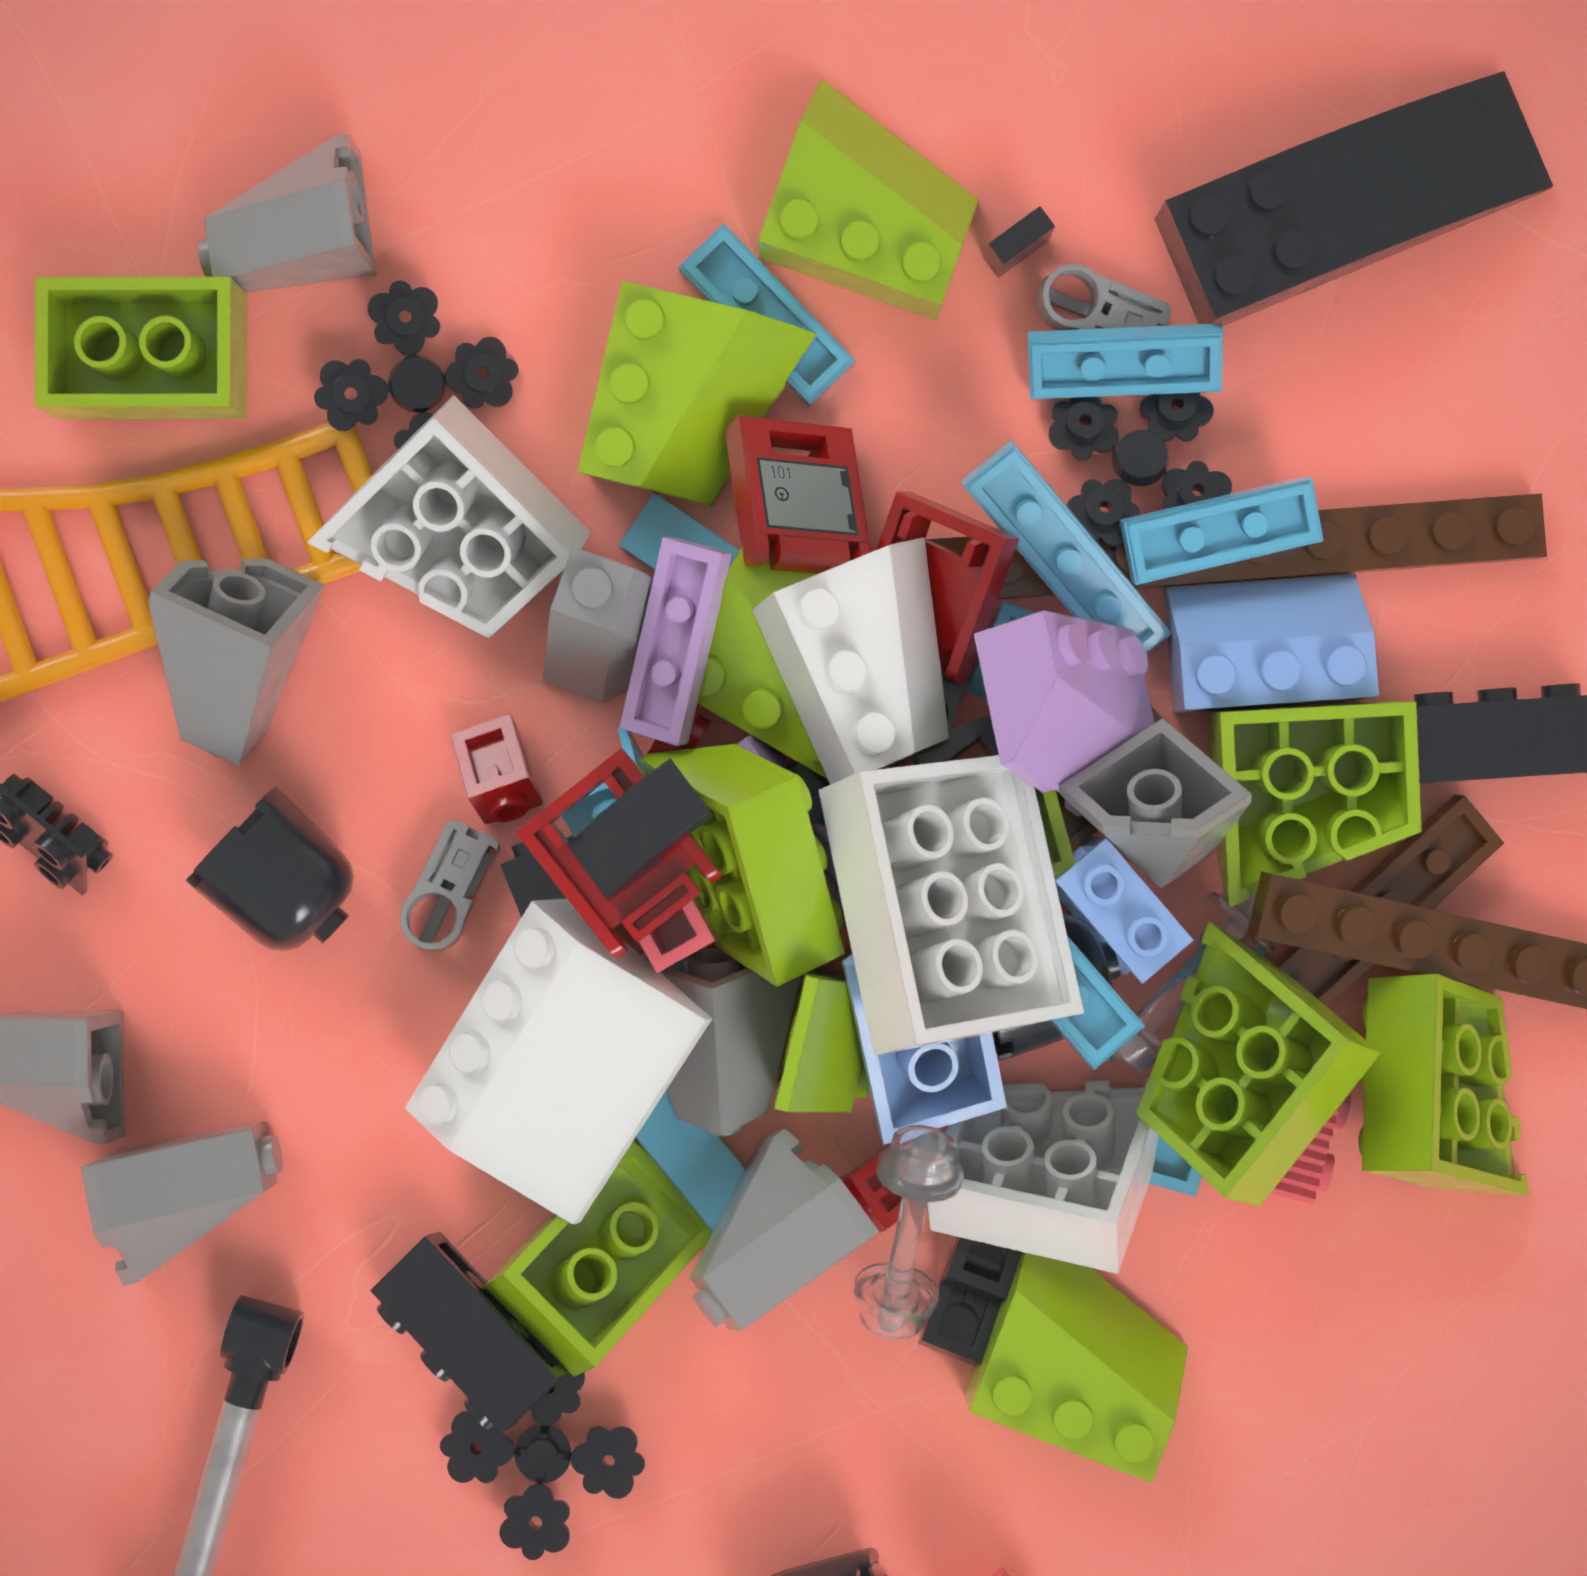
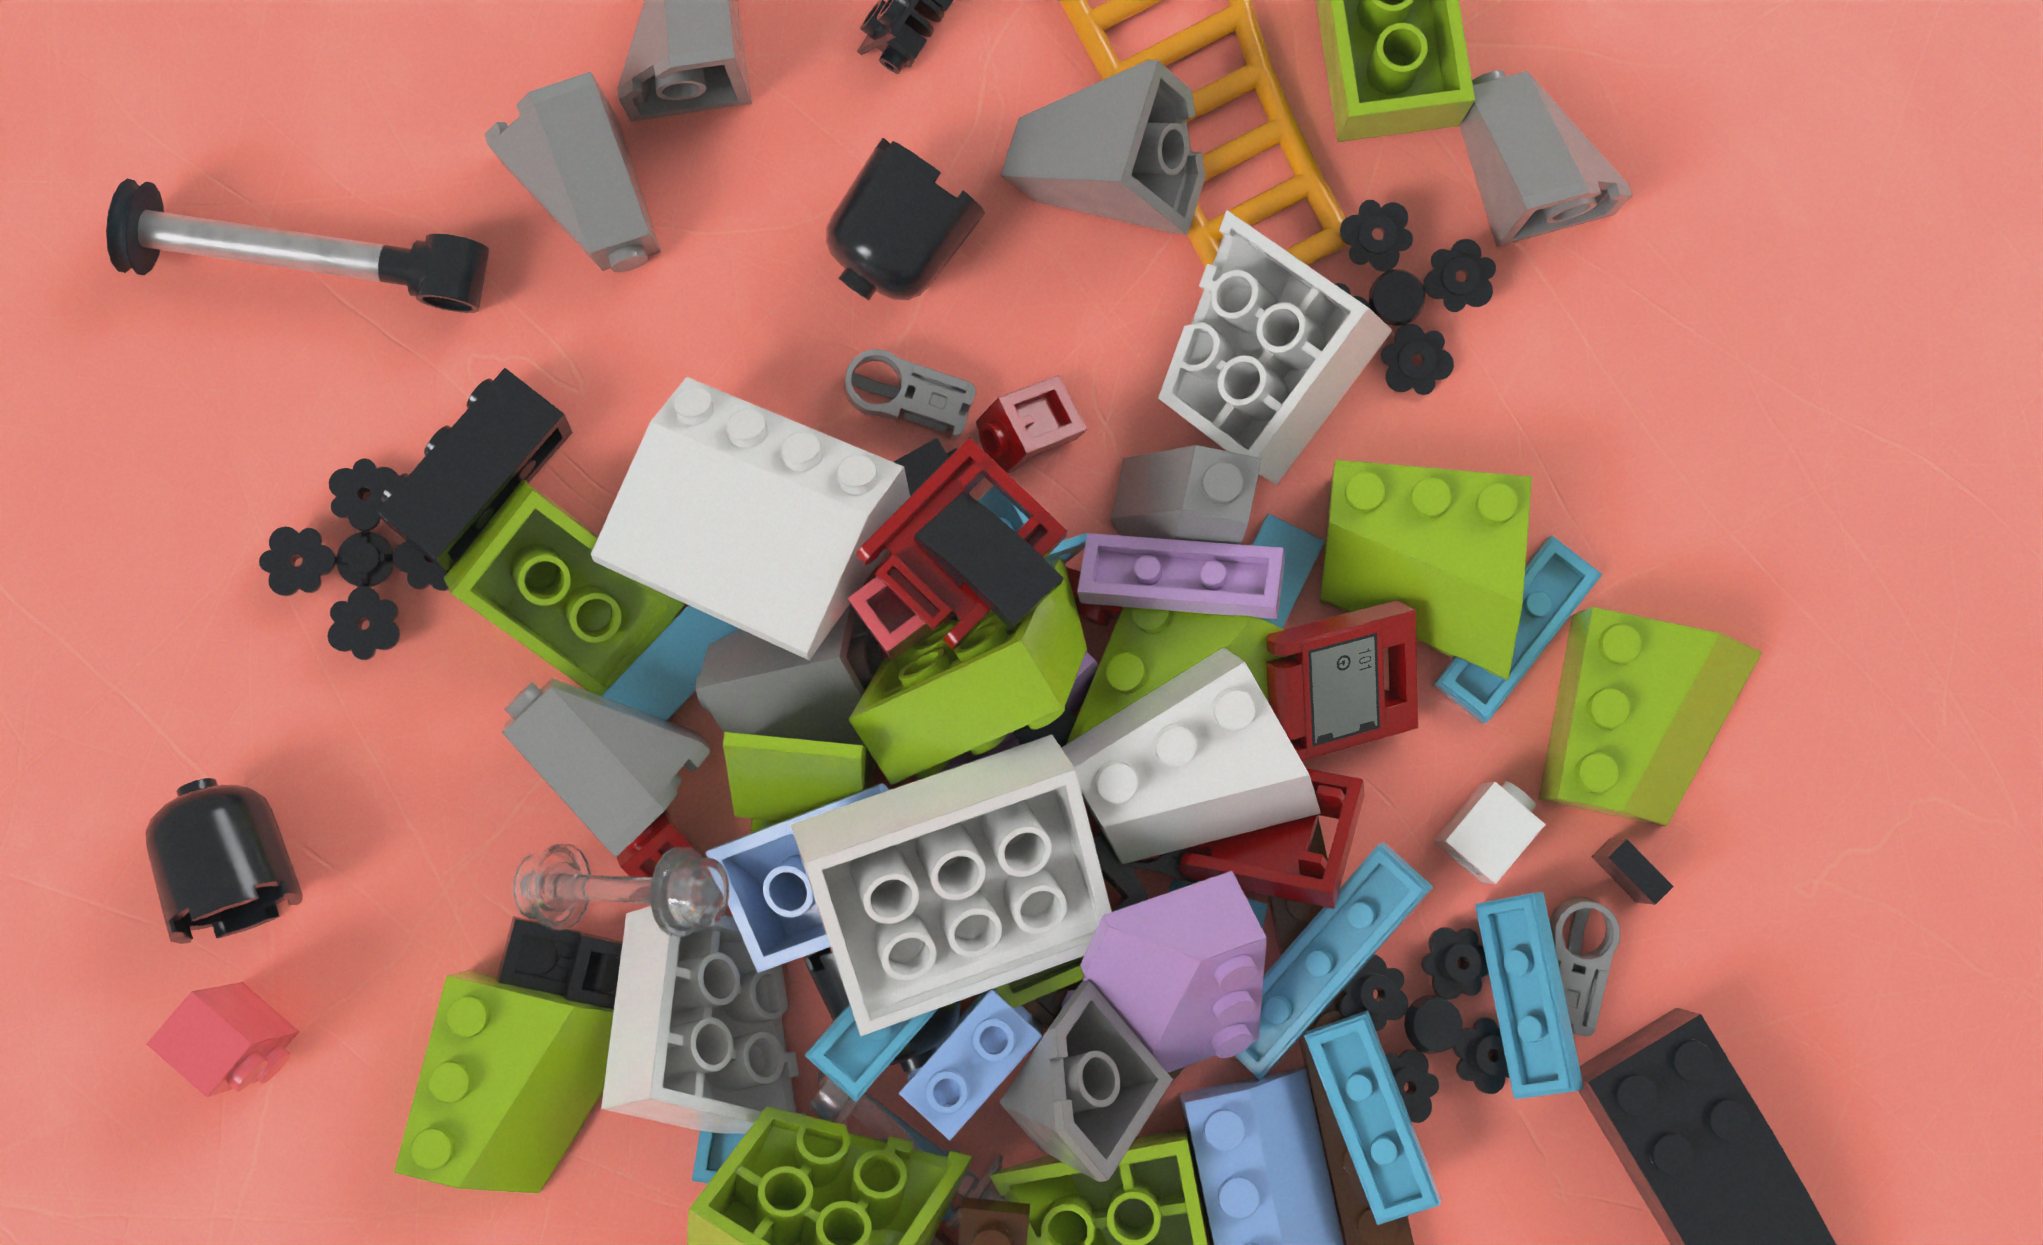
camera: 85 degrees right, 5 degrees down
(961, 373) = (1490, 830): none -> white brick

